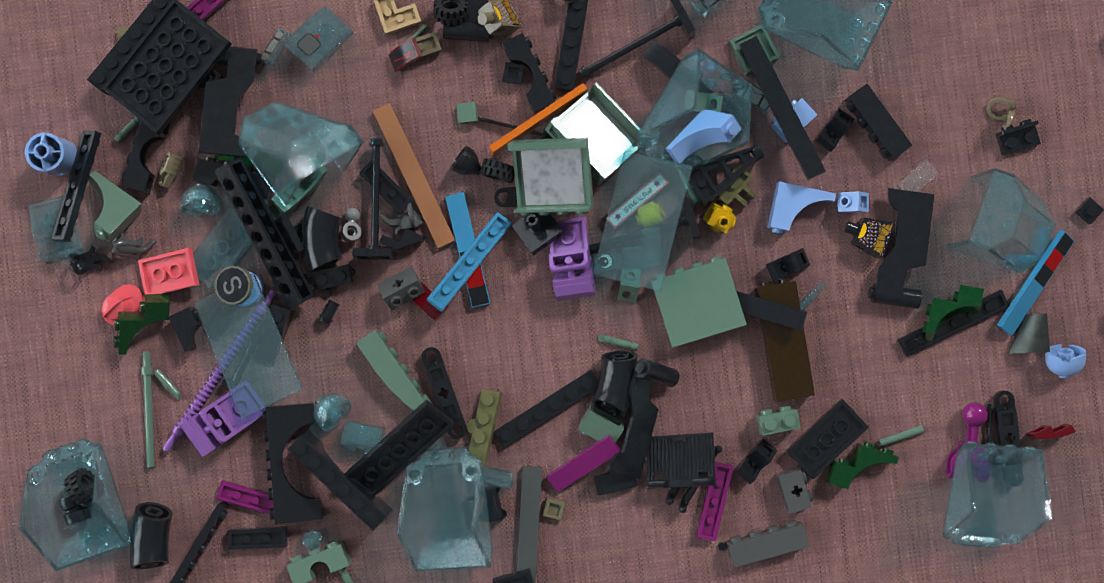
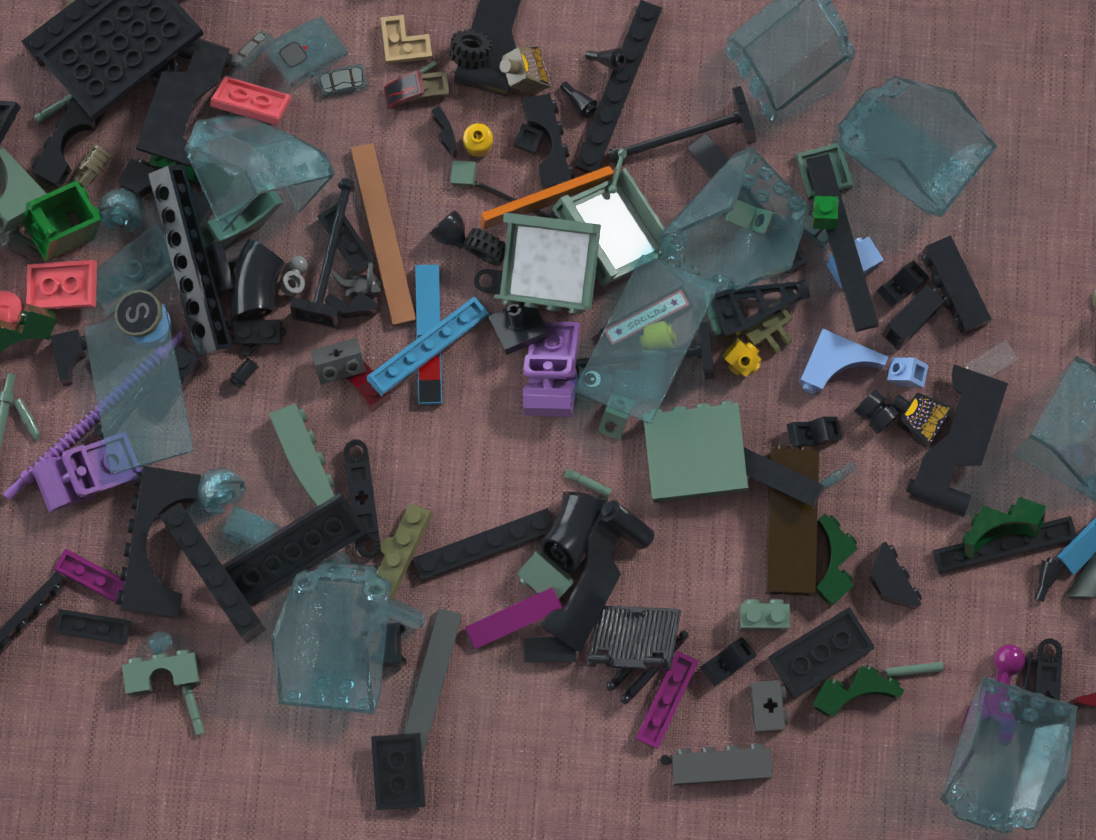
camera: 10 degrees right, 10 degrees down
(148, 226) = (50, 227): none -> green container
(283, 89) = (250, 100): none -> coral tile
(353, 55) = (342, 80): none -> tile
(447, 86) = (446, 136): none -> black slope
(473, 89) = (478, 140): none -> yellow head
(550, 35) = (582, 103): none -> black cone
(554, 508) = (466, 669): dark tan tile -> none
(589, 101) = (622, 154): none -> sand green hinge
(703, 130) = (741, 248): light blue arch -> none
(765, 87) = (825, 212): none -> green brick
(826, 383) = (840, 548): none -> dark green arch
(833, 238) = (876, 411): none -> black wheel
(850, 157) = (913, 317): none -> black window
(871, 369) = (892, 580): none -> black slope
(992, 339) = (1049, 573): none -> black cone

